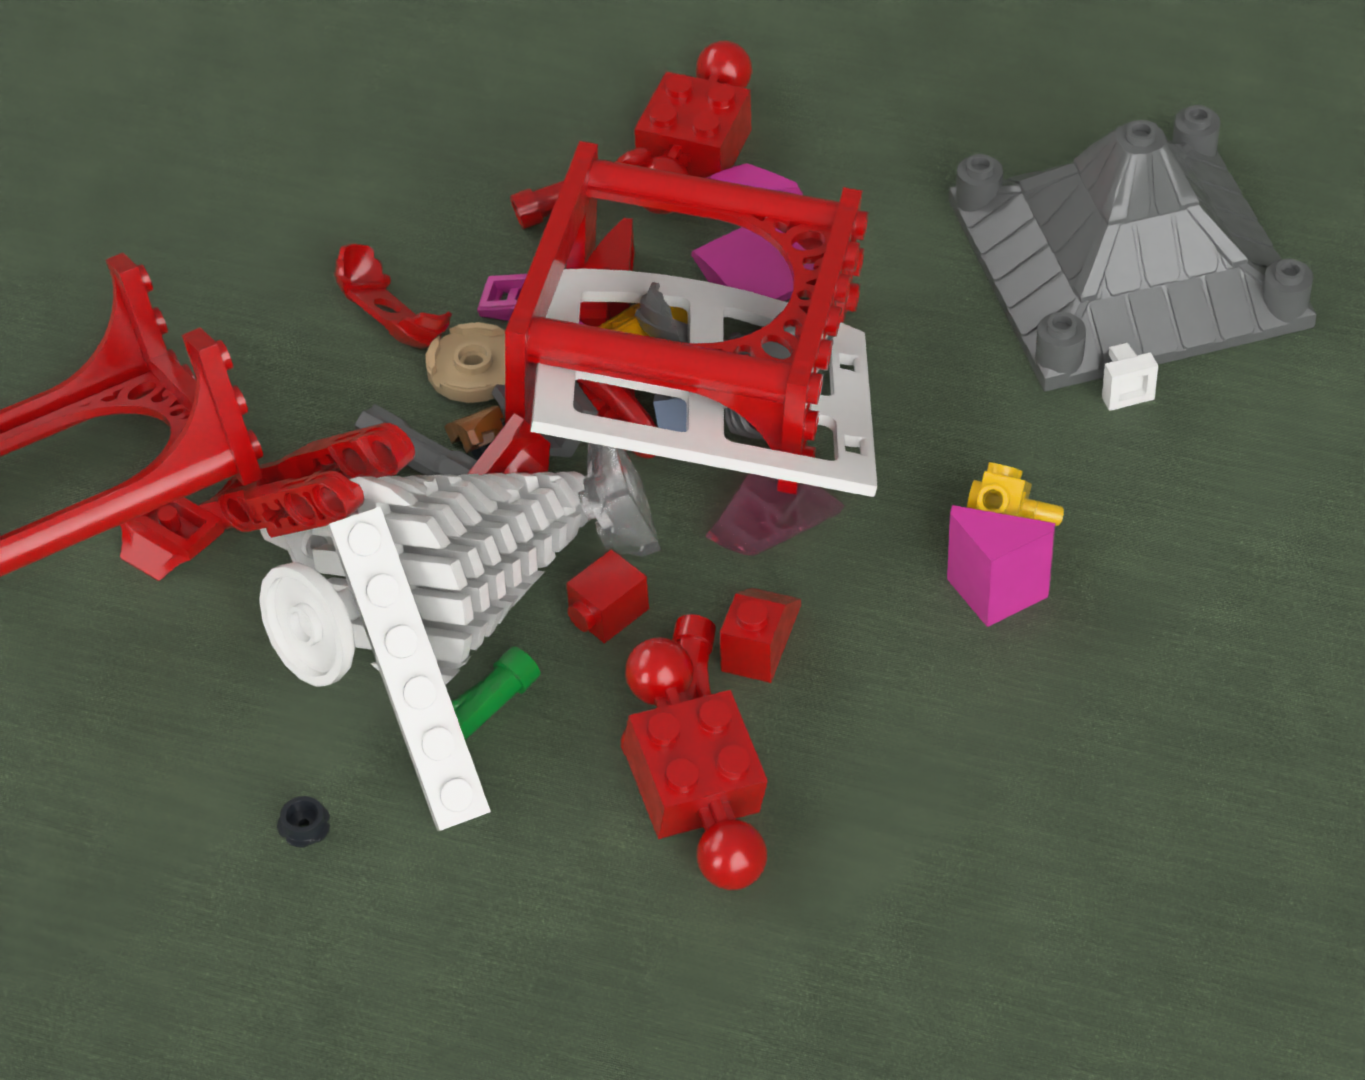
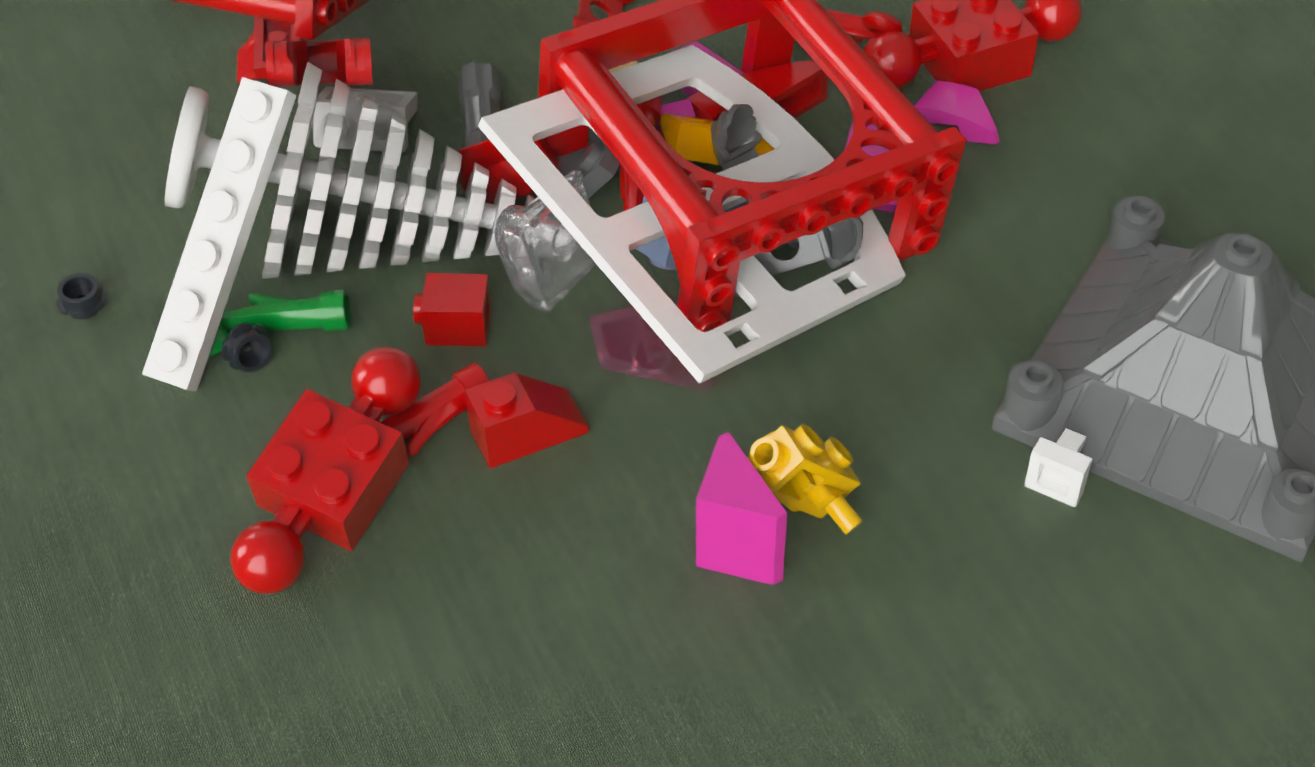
camera: 45 degrees right, 0 degrees up
(491, 747) = (254, 355): none -> black plate

